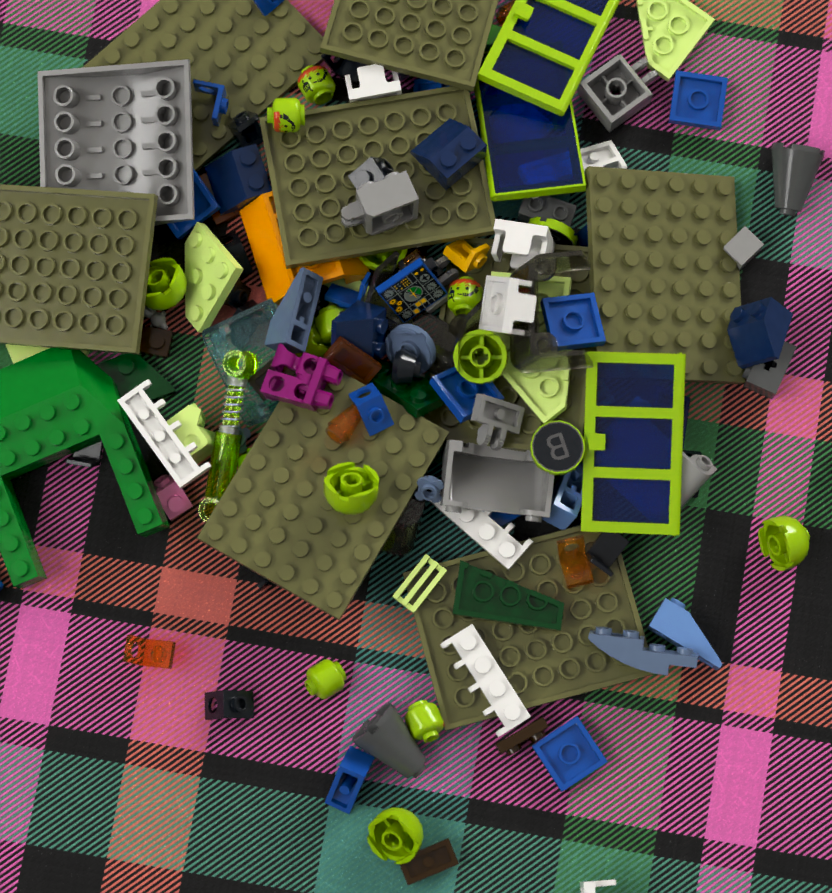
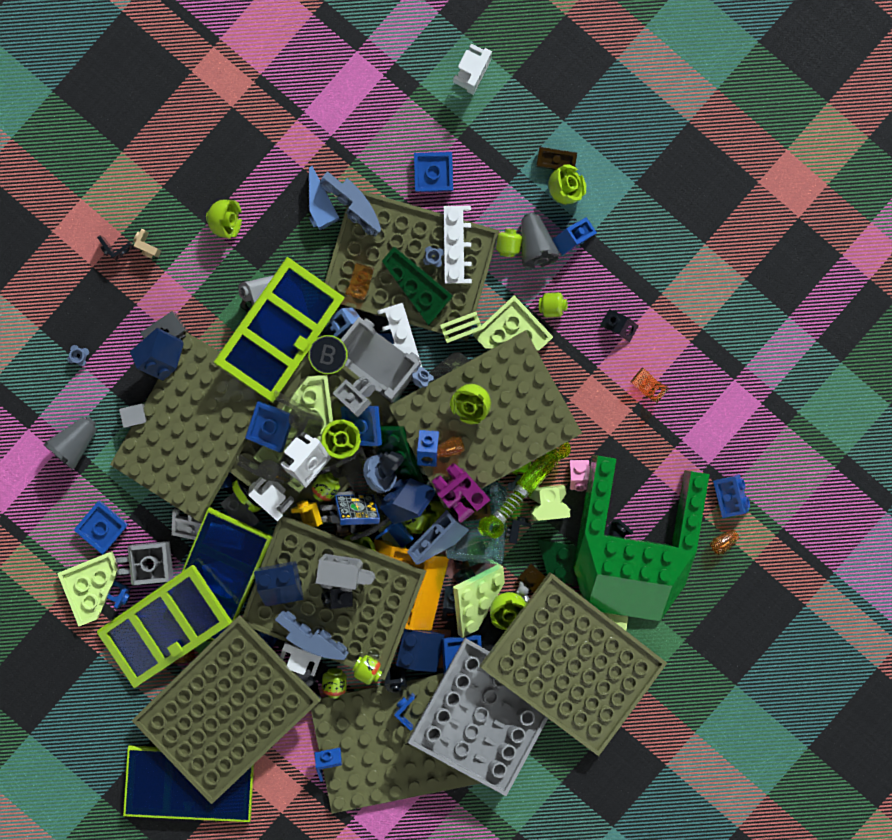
camera: 145 degrees left, 10 degrees up
(161, 436) = (567, 510): white hinge -> none
(211, 380) = (512, 532): none -> black bracket
(352, 361) = (421, 486): reddish brown tile -> none
(362, 110) = (317, 643): none -> sand blue slope
(363, 625) = (510, 321): none -> yellowish green plate
(502, 655) = (432, 251): none -> sand blue plate
(512, 743) = (448, 198): dark brown plate -> none
(606, 550) = (338, 277): black bracket -> none
(622, 36) = (123, 597): none -> blue bracket

